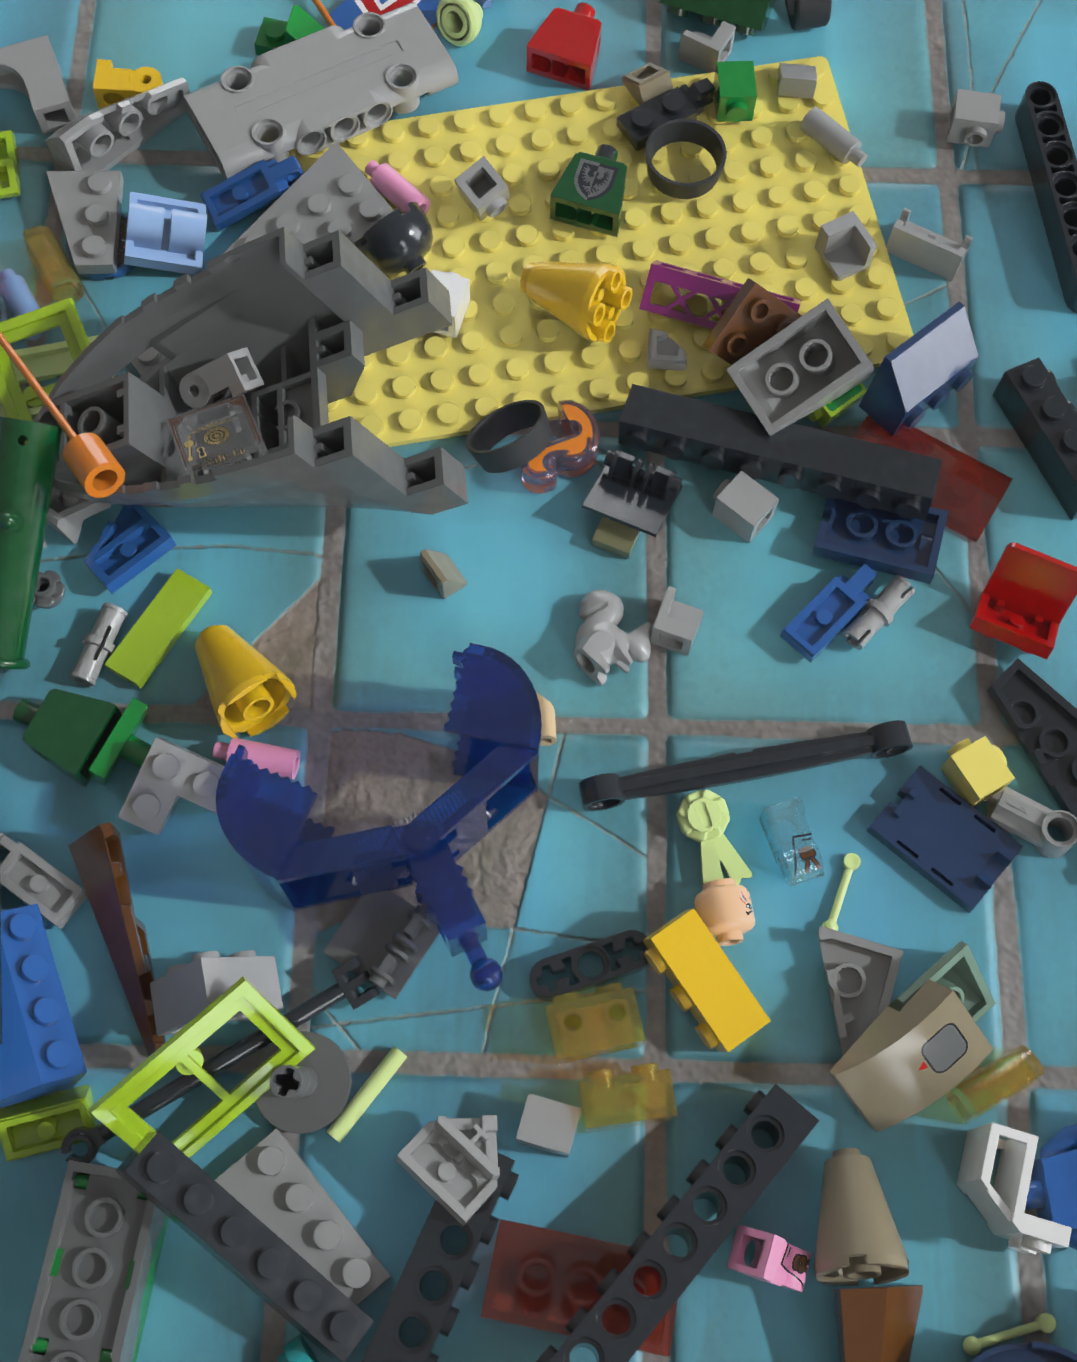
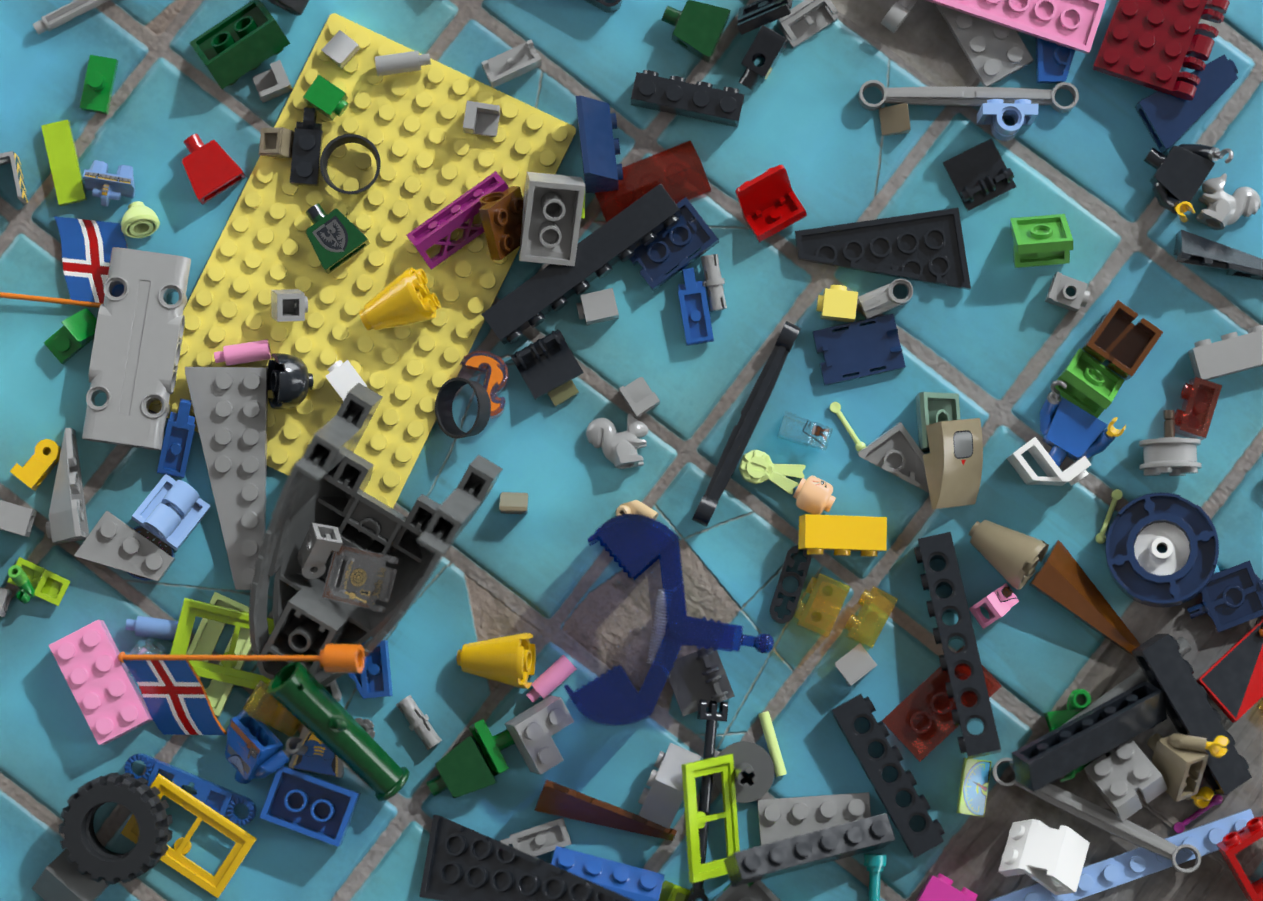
camera: 55 degrees left, 15 degrees up
(52, 264) = (143, 593): clear yellow brick -> none
(158, 628) = (432, 682): lime tile -> none
(455, 1162) = (842, 723): light grey slope -> none
(665, 352) = (469, 276): light grey tile -> none
(994, 1083) = (995, 428): clear yellow brick -> none

